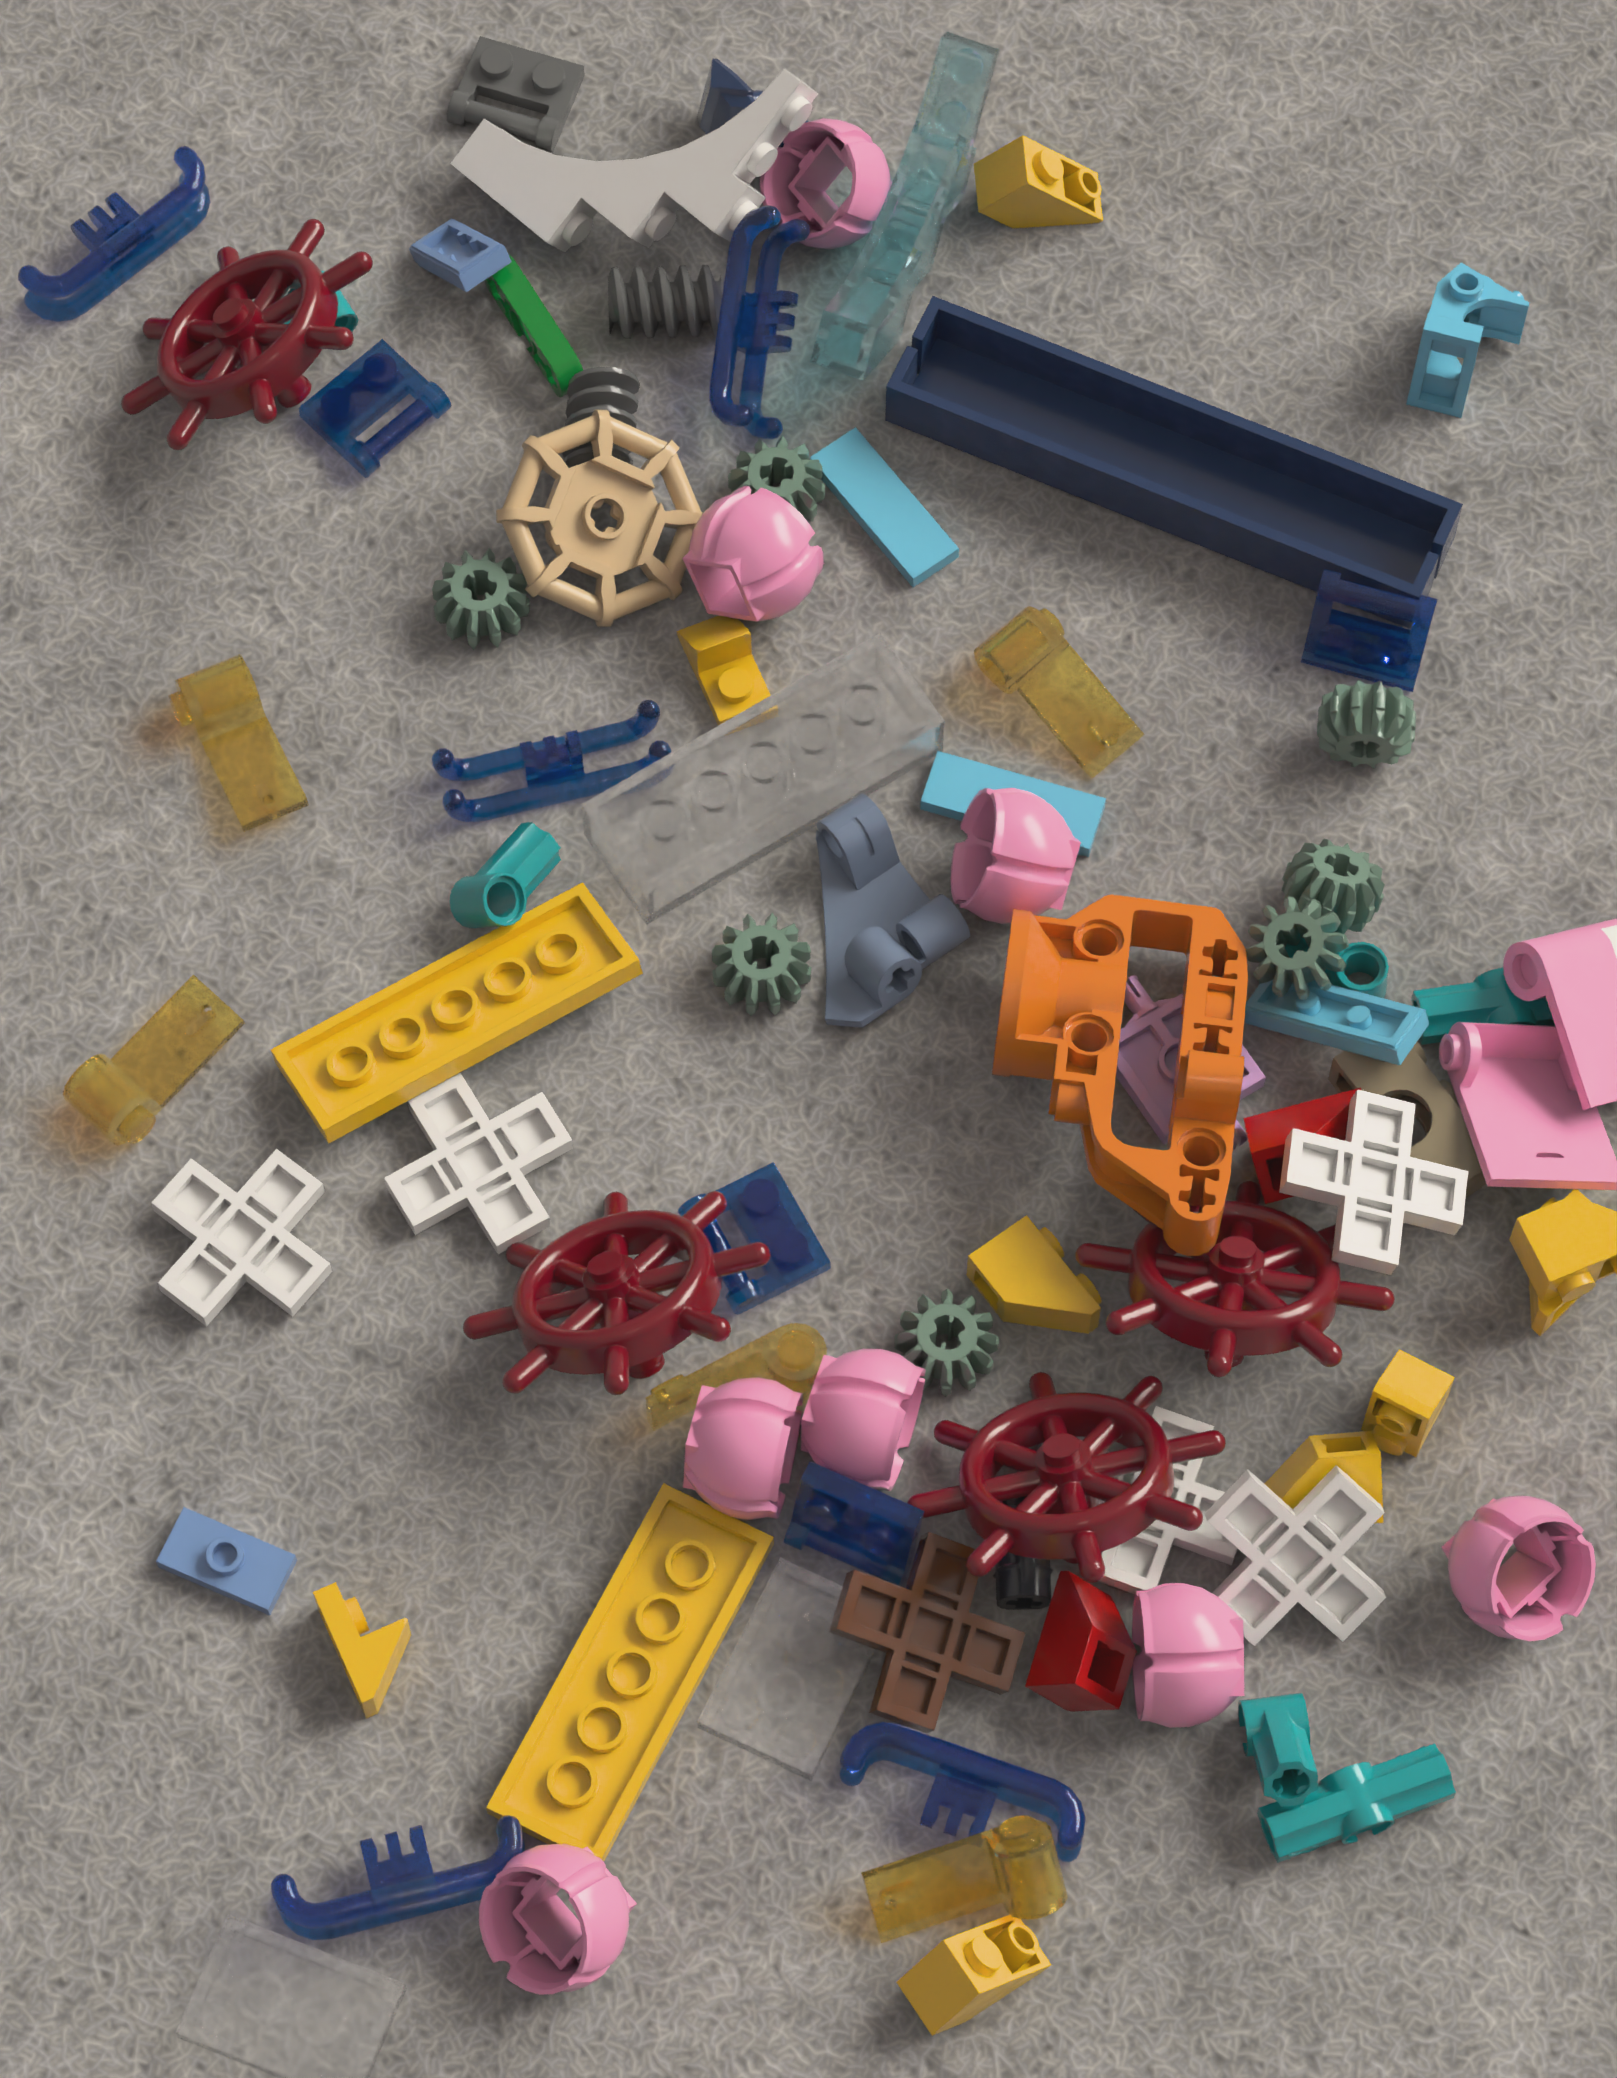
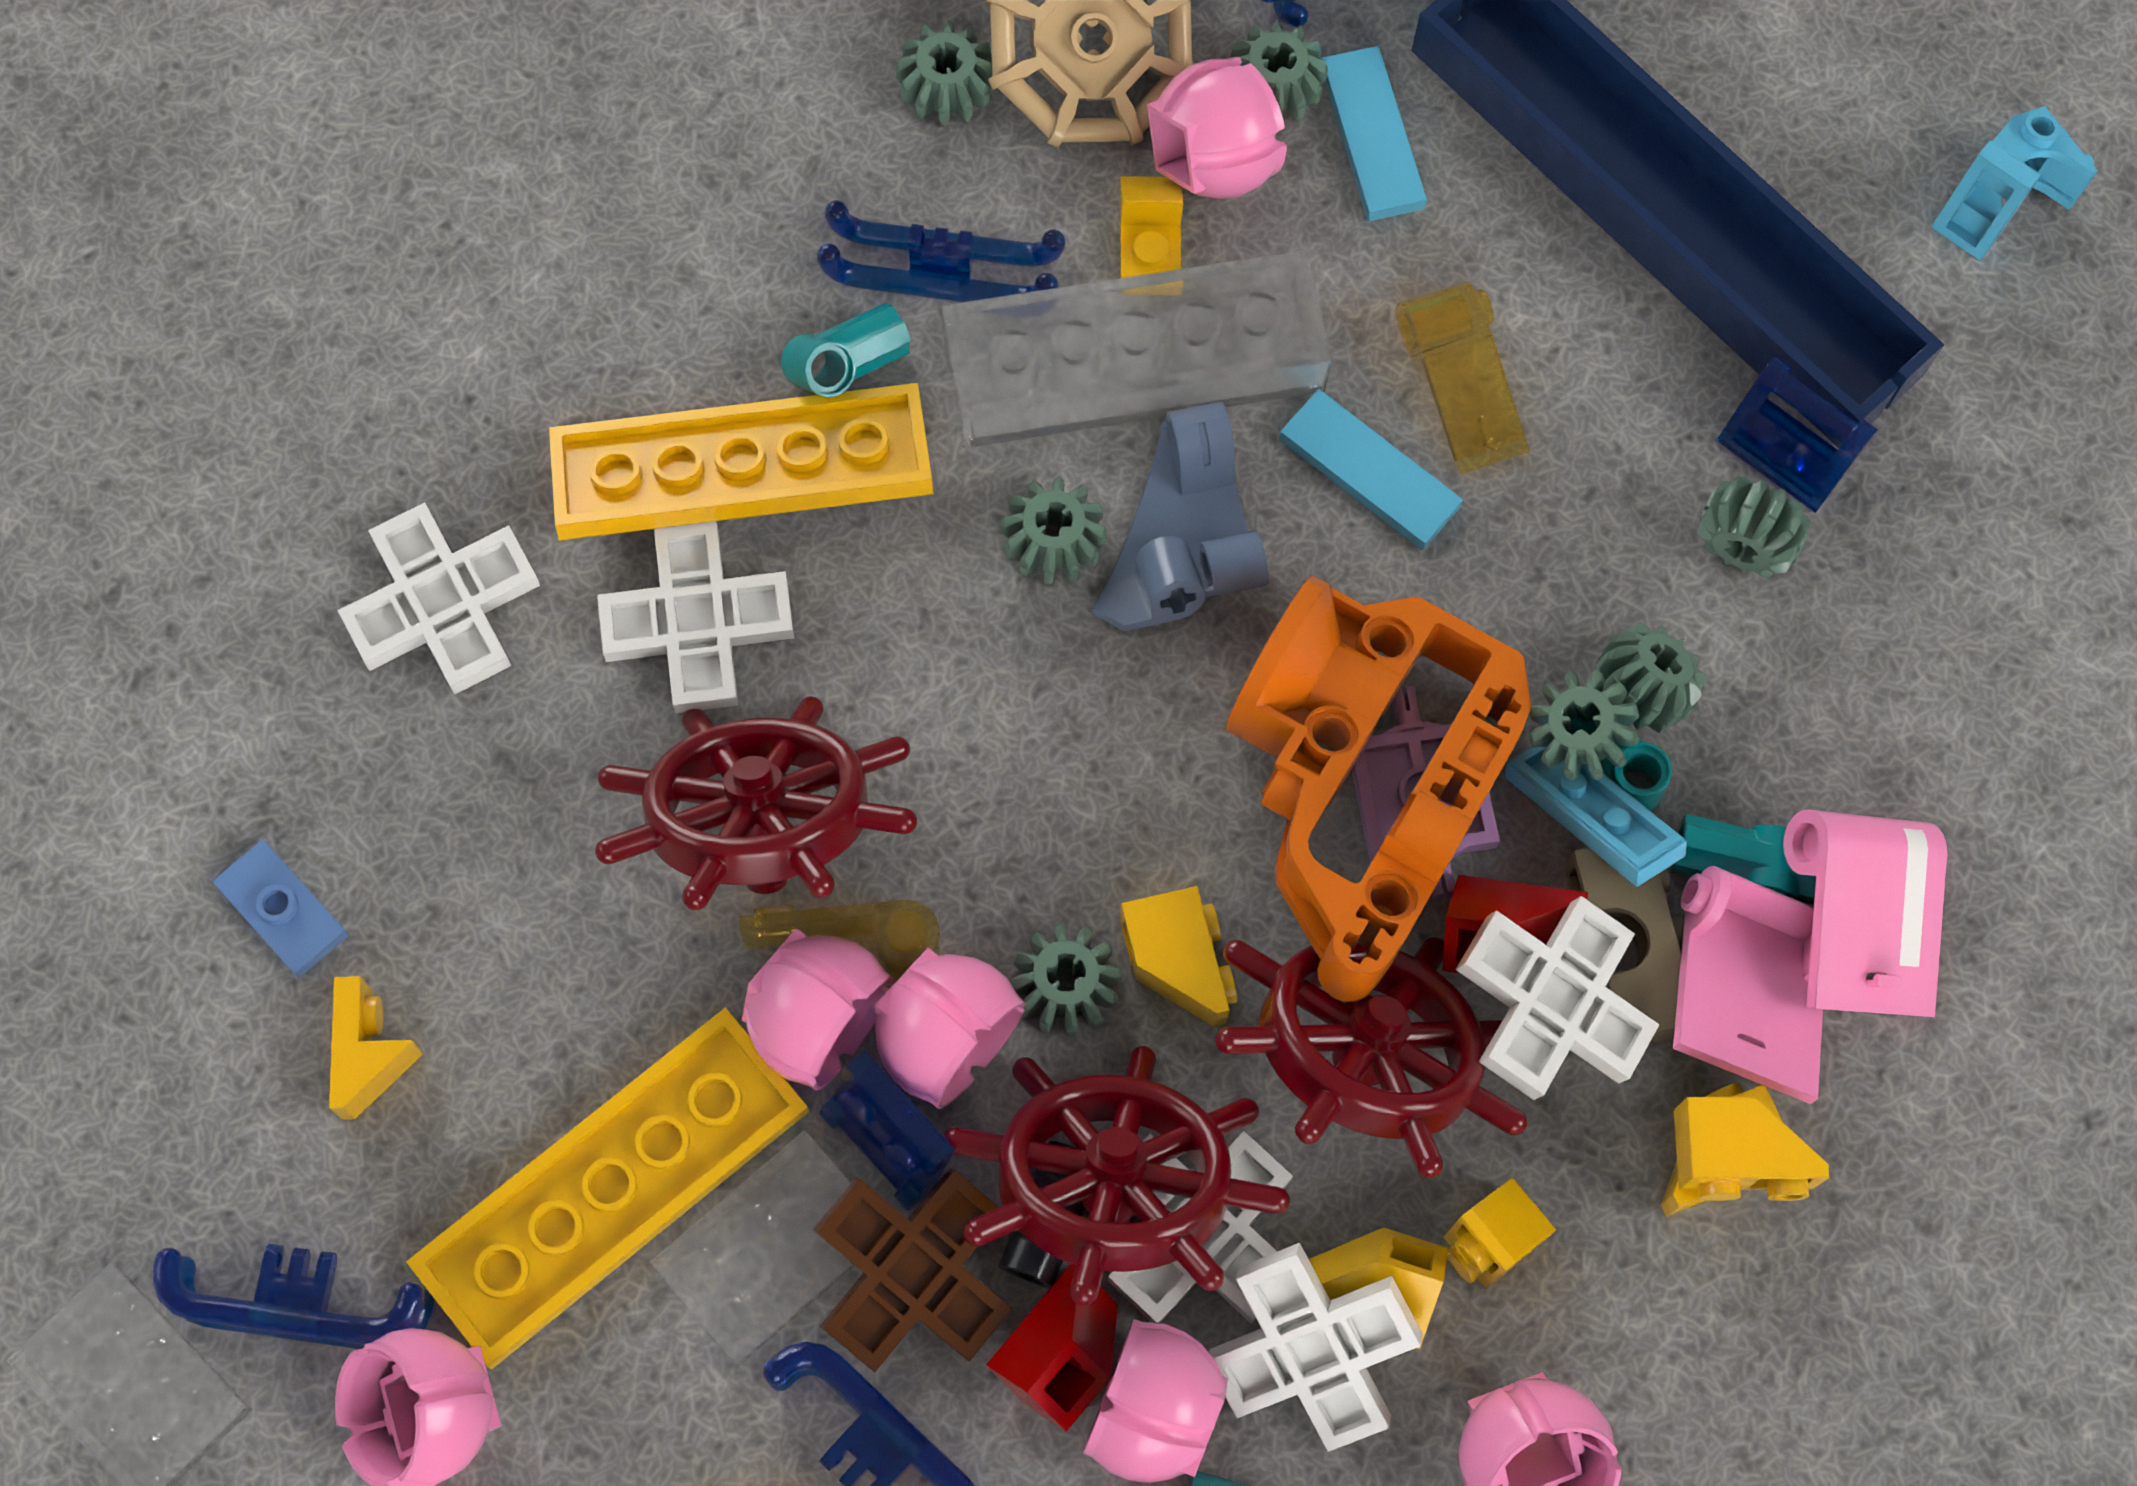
camera: 20 degrees right, 5 degrees up
(153, 1066) = (407, 412): clear yellow door -> none
(238, 741) = (659, 121): clear yellow door -> none
(767, 1215) = (949, 797): clear blue plate -> none
(1013, 856) = (1343, 522): bright pink piece -> none

